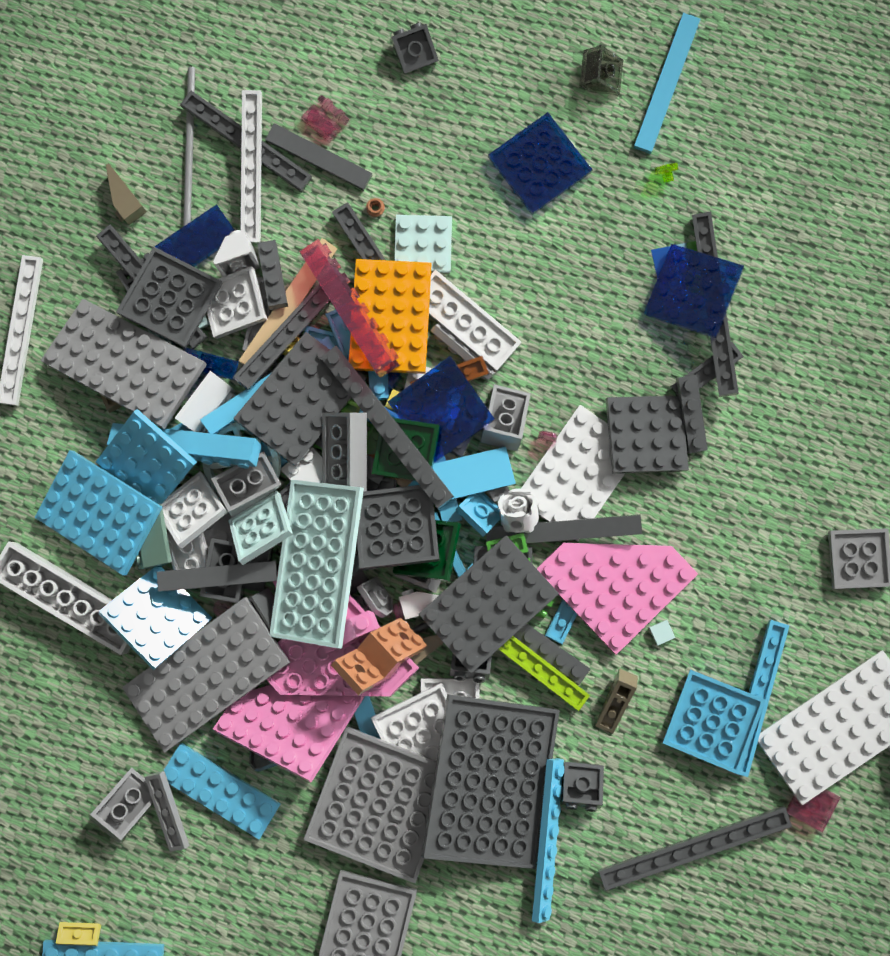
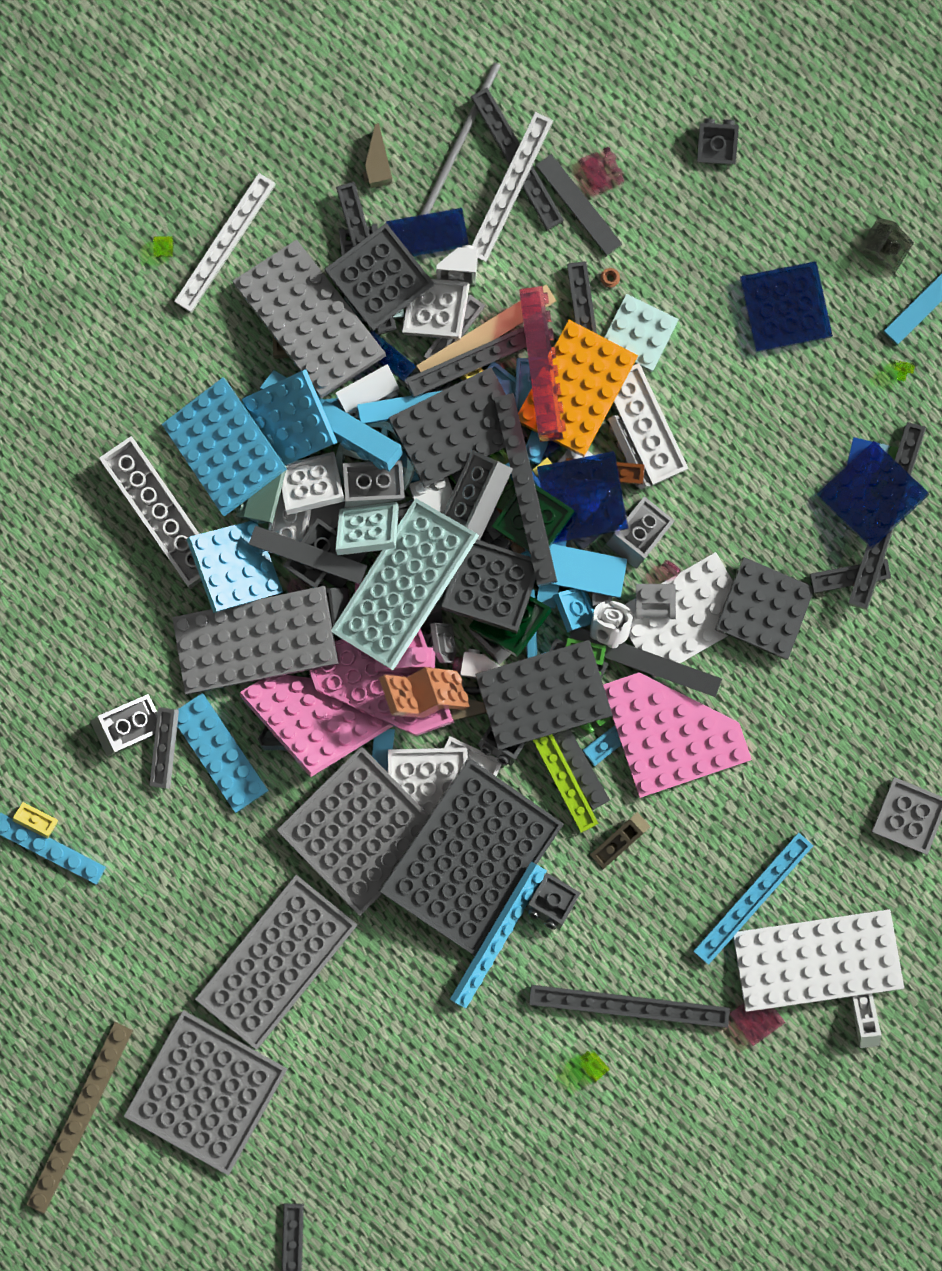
camera: 25 degrees right, 0 degrees up
(272, 275) = (484, 298): dark grey plate -> none
(546, 466) = (656, 595): none -> light grey plate
(661, 632) = (692, 798): light aqua tile -> none
(689, 919) = (593, 1065): none -> clear neon green brick
(692, 413) = (816, 609): dark grey plate -> none
(714, 721) = (701, 899): medium azure plate -> none

